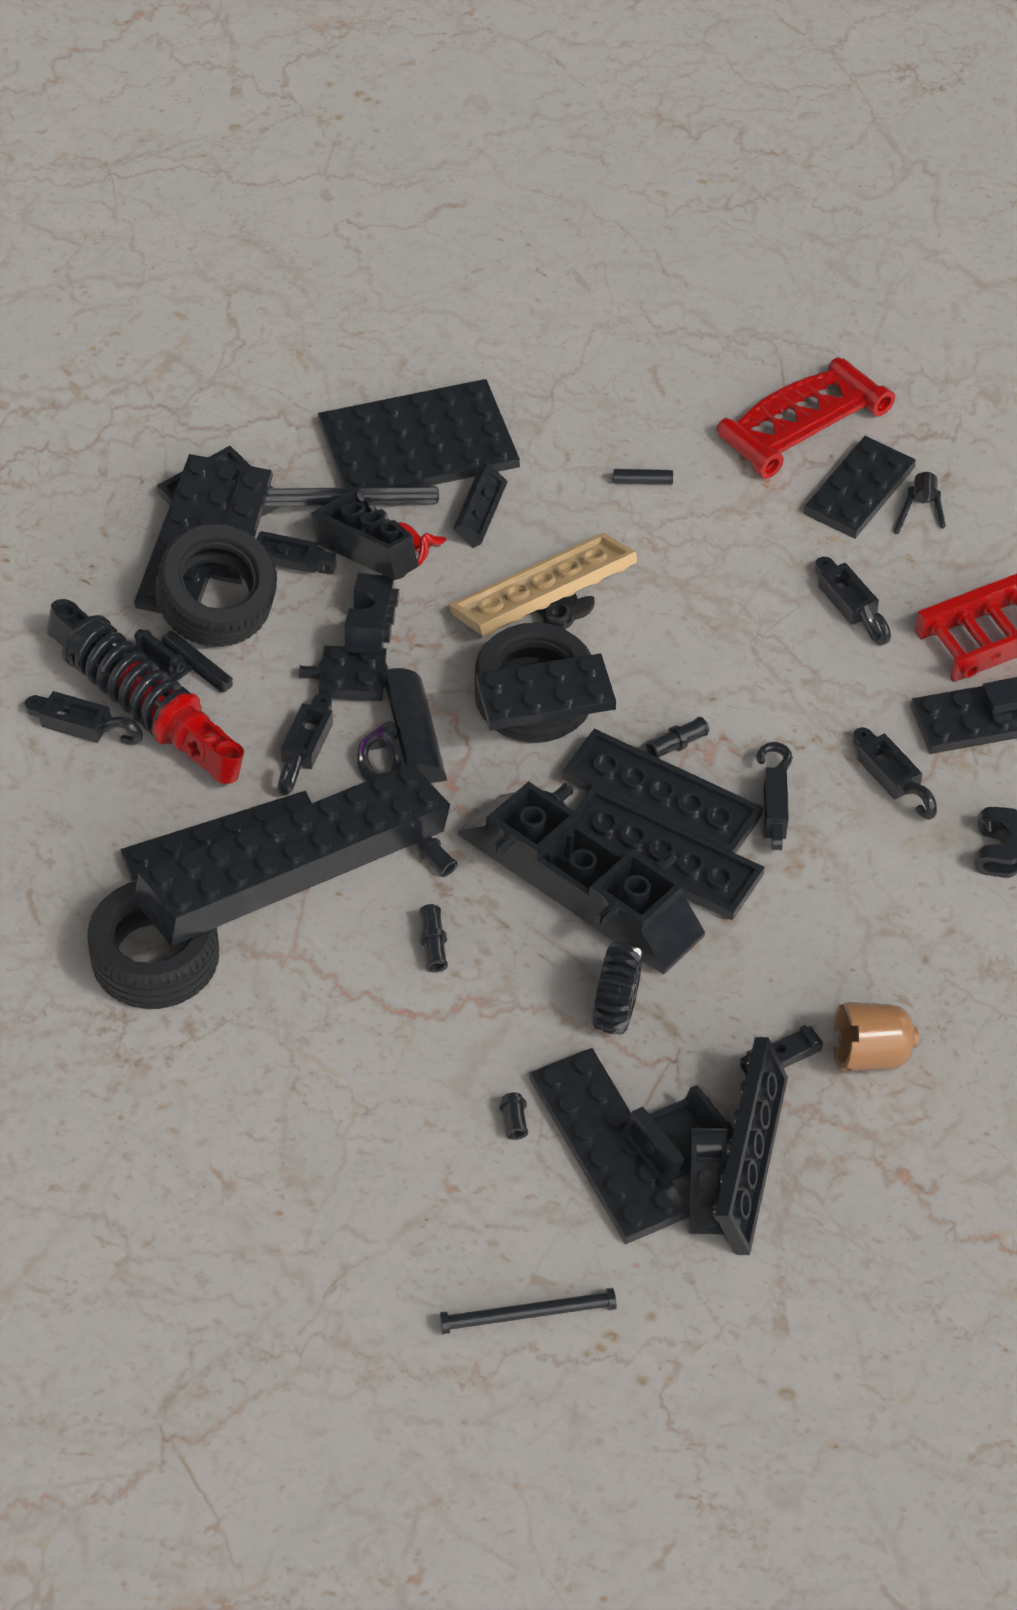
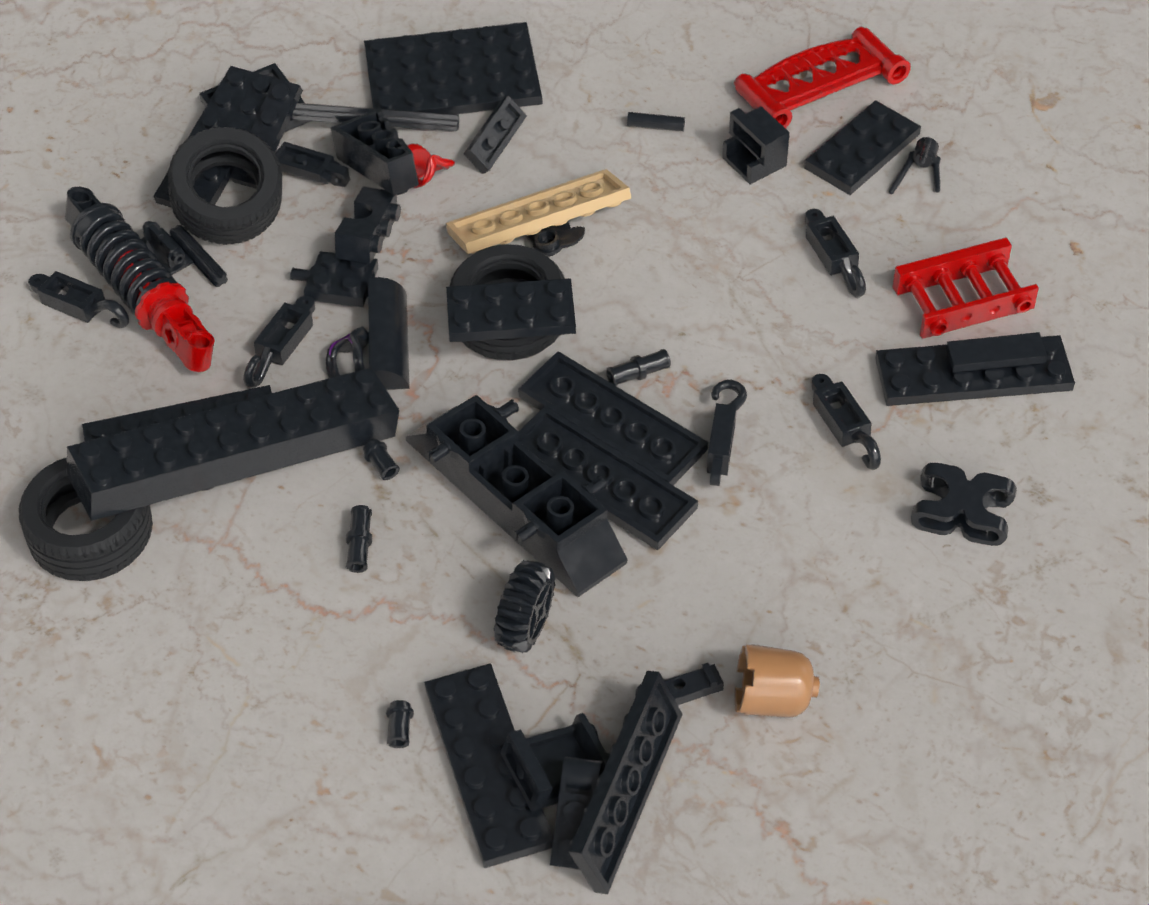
camera: 10 degrees right, 0 degrees up
(754, 493) = (756, 144): none -> black plate

